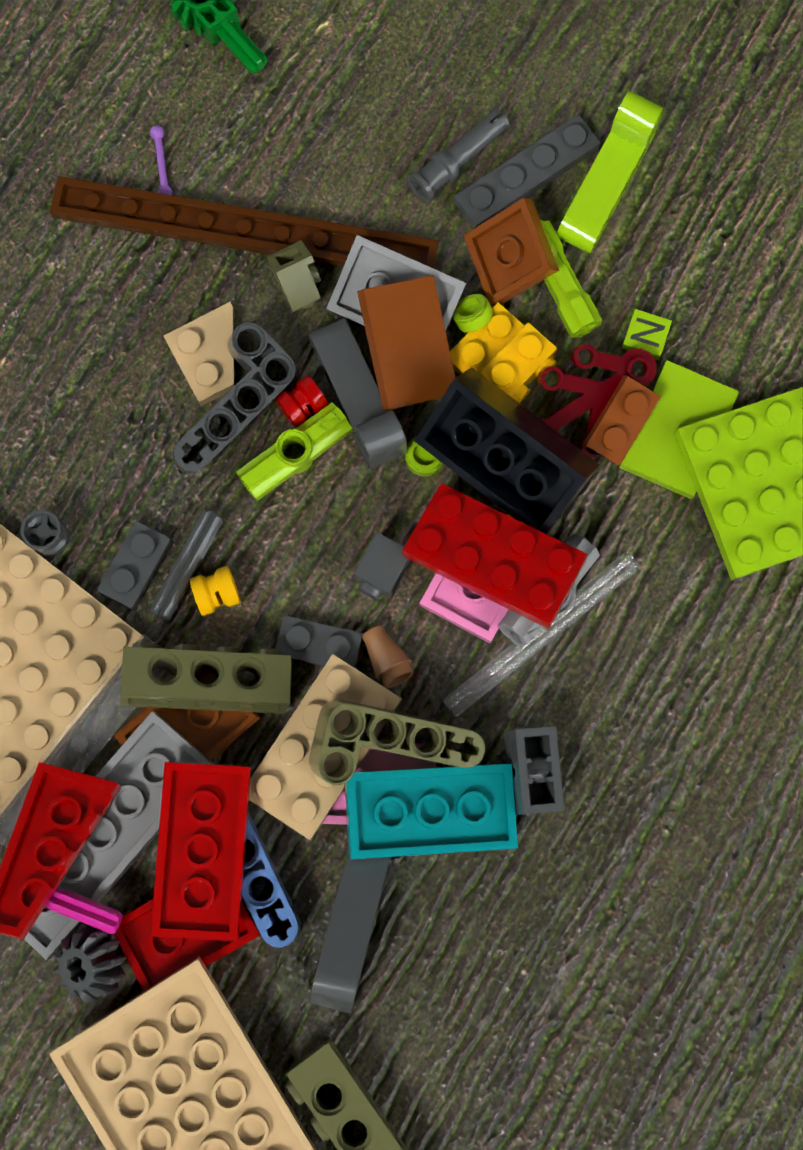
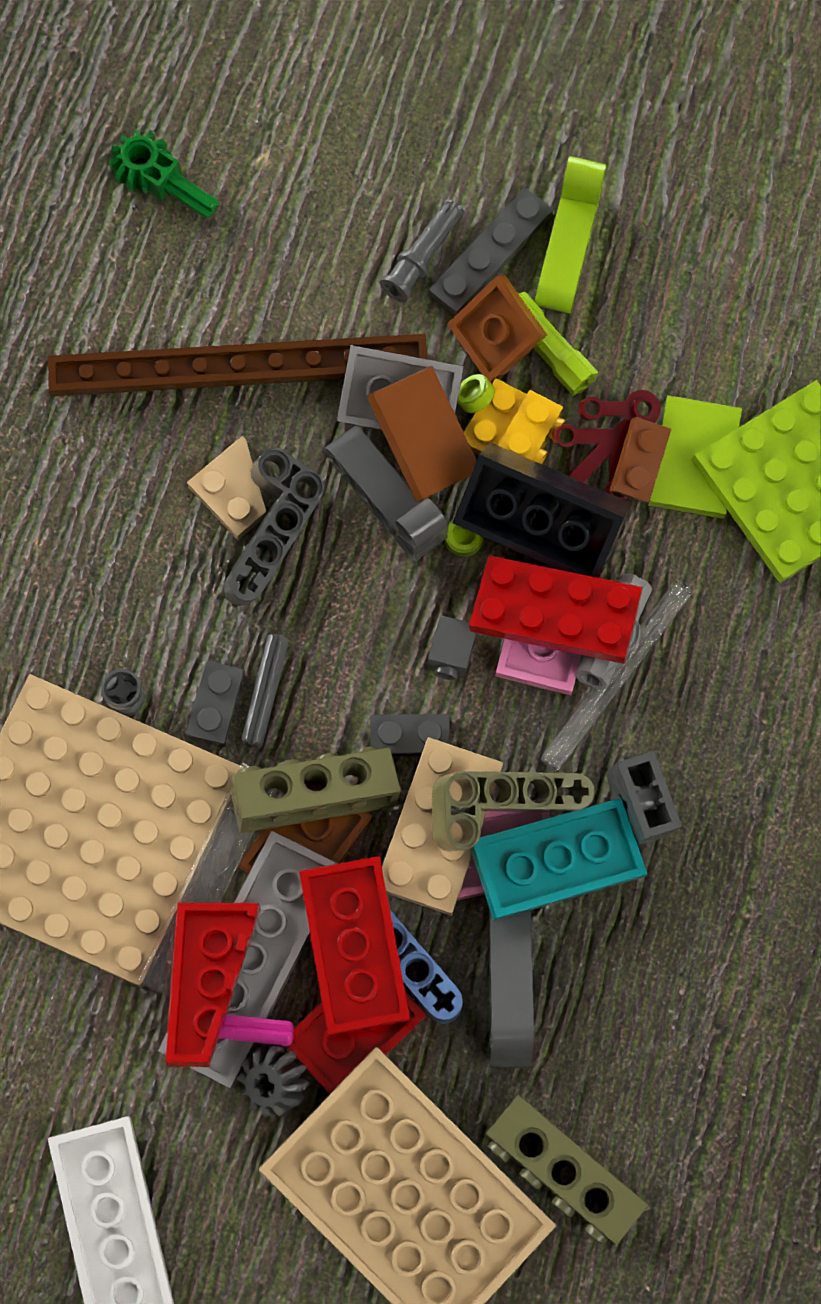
camera: 15 degrees left, 5 degrees down
(157, 133) = (130, 295): medium lavender hinge -> none
(215, 590) = (299, 707): yellow wheel -> none
(296, 275) = (300, 396): olive brick -> none
(301, 401) = (335, 513): red wheel -> none
(315, 435) = (325, 578): lime piece -> none
(387, 658) = (478, 731): medium nougat cone -> none
(647, 333) = (642, 374): lime tile -> none

